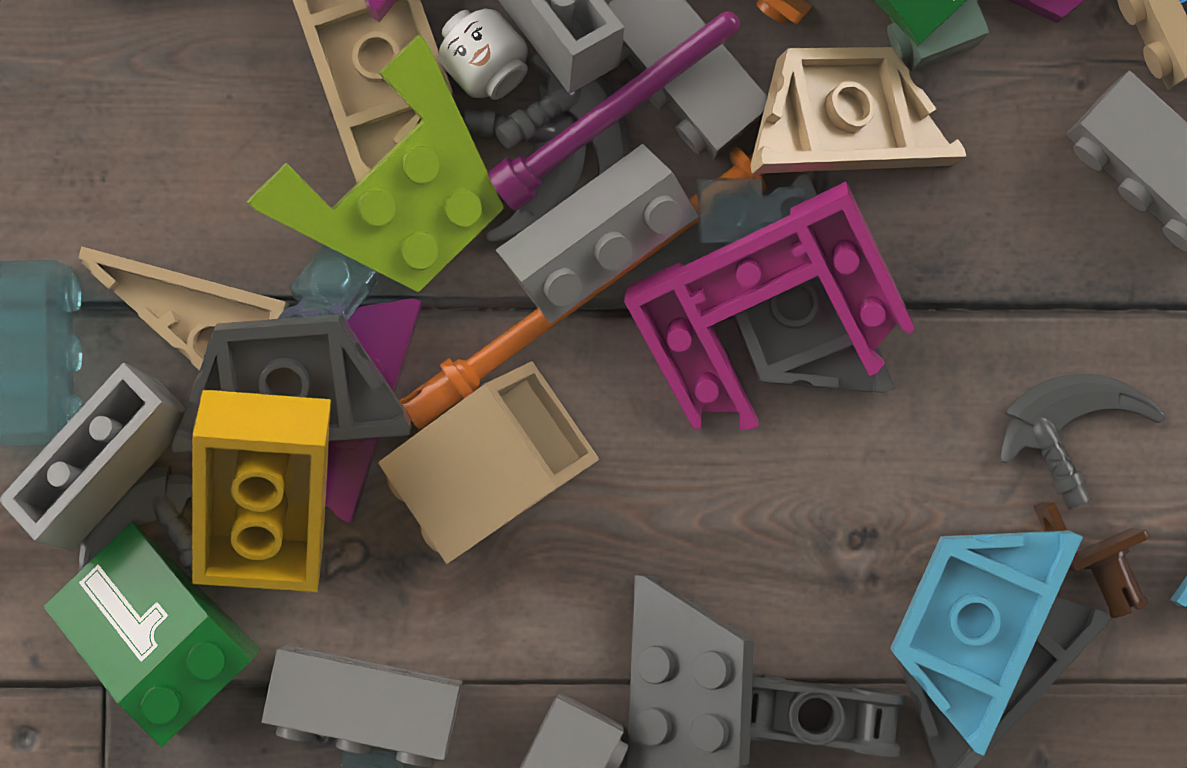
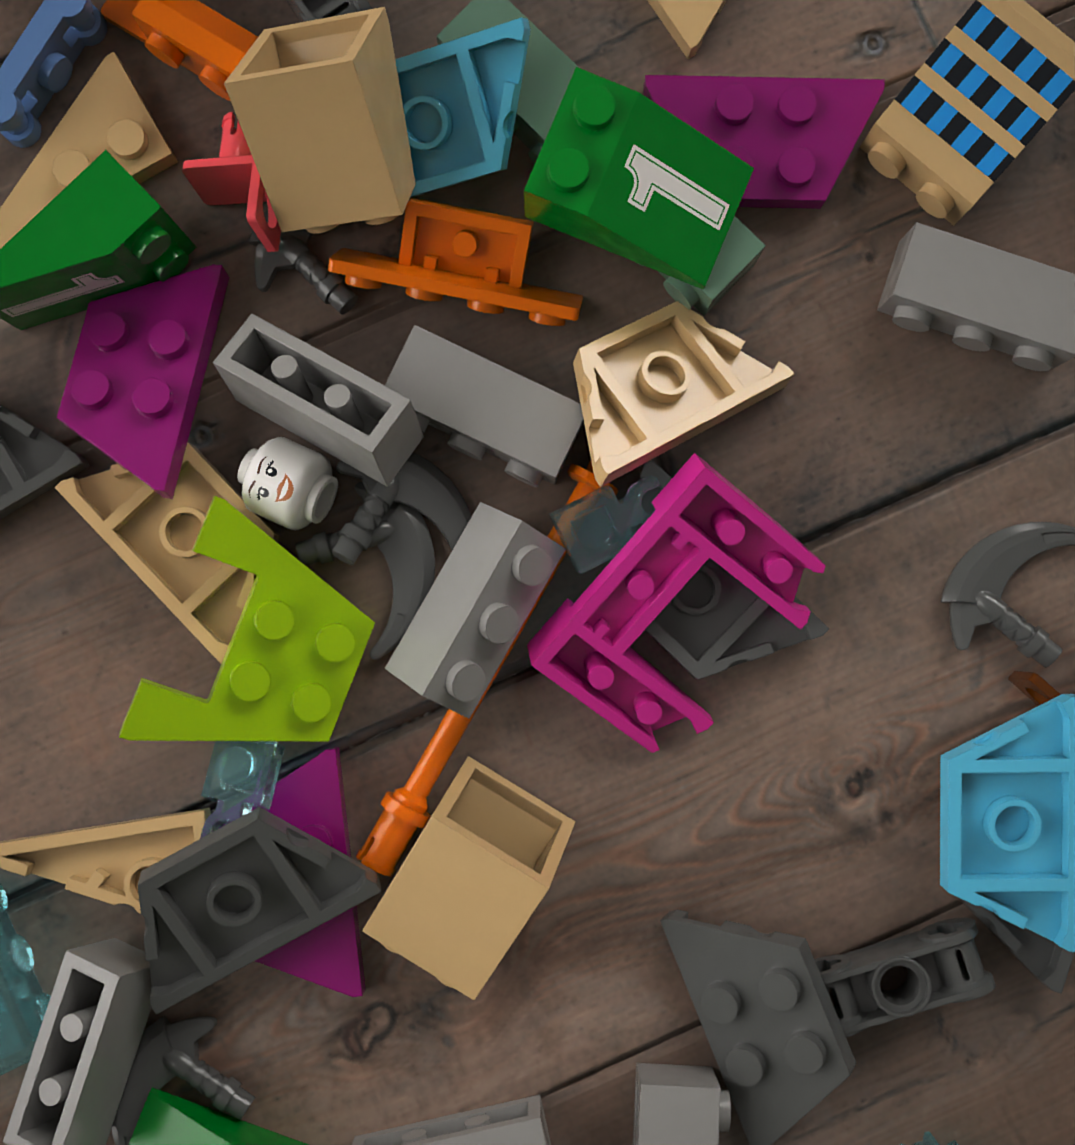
camera: 20 degrees left, 0 degrees up
(259, 490) = (254, 1019): yellow brick -> none
(520, 177) = (376, 588): magenta piece -> none

